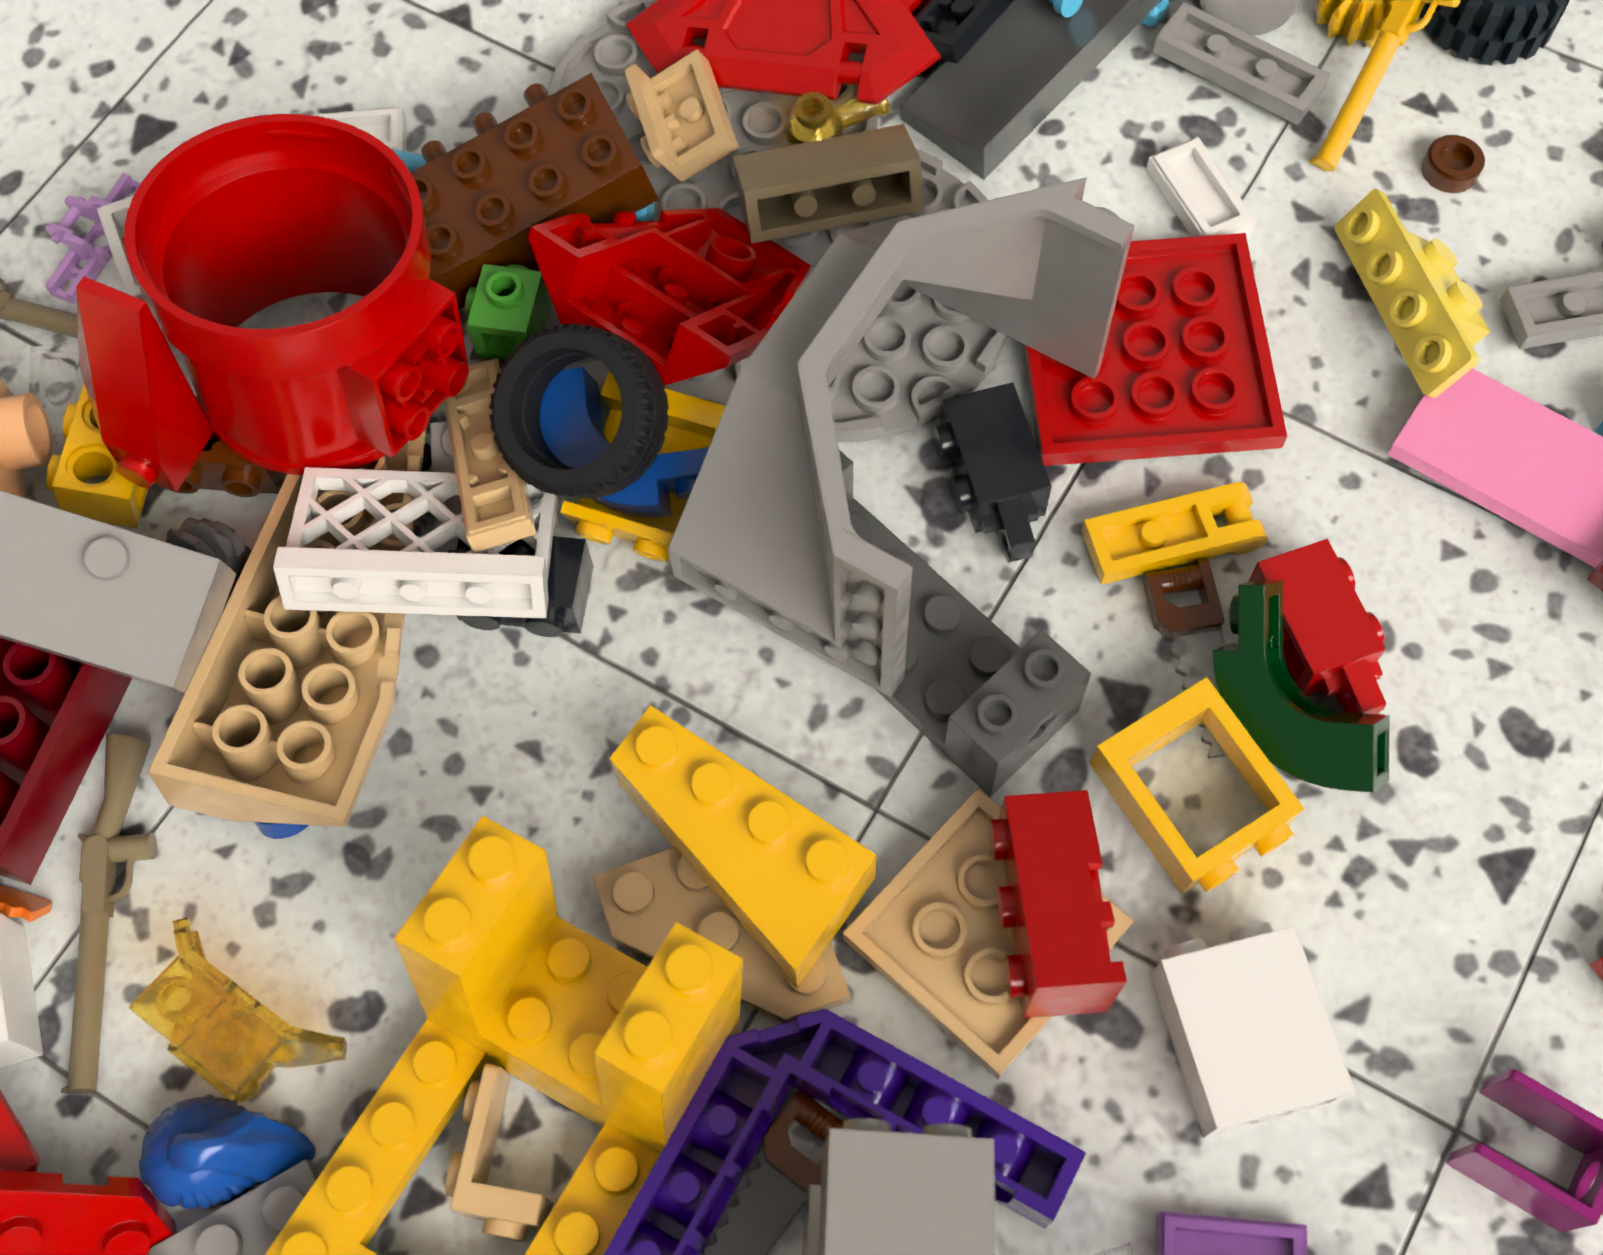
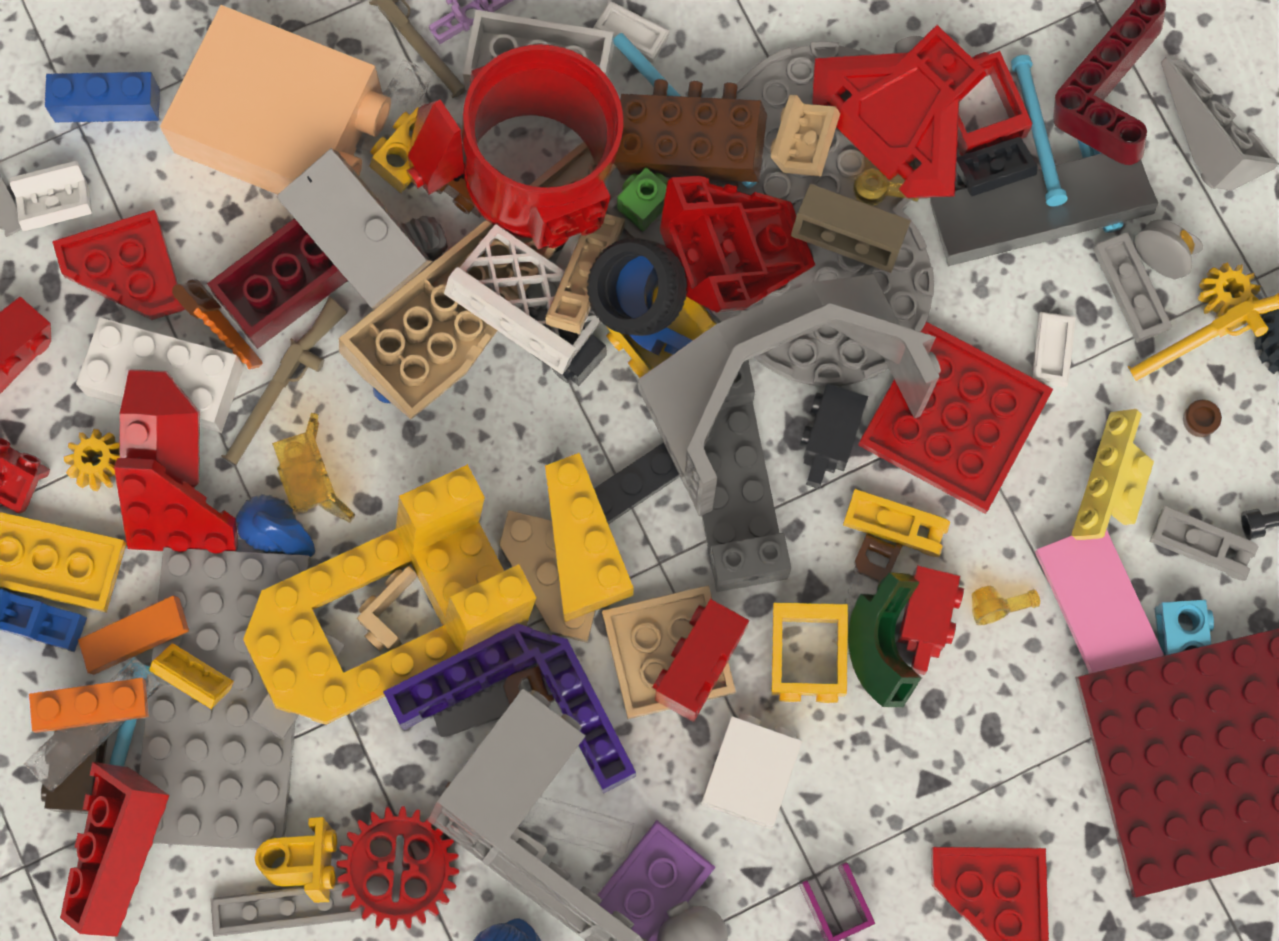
camera: 30 degrees right, 10 degrees up
(766, 703) = (636, 483): none -> black plate
(1391, 559) = (990, 606): none -> clear yellow bar

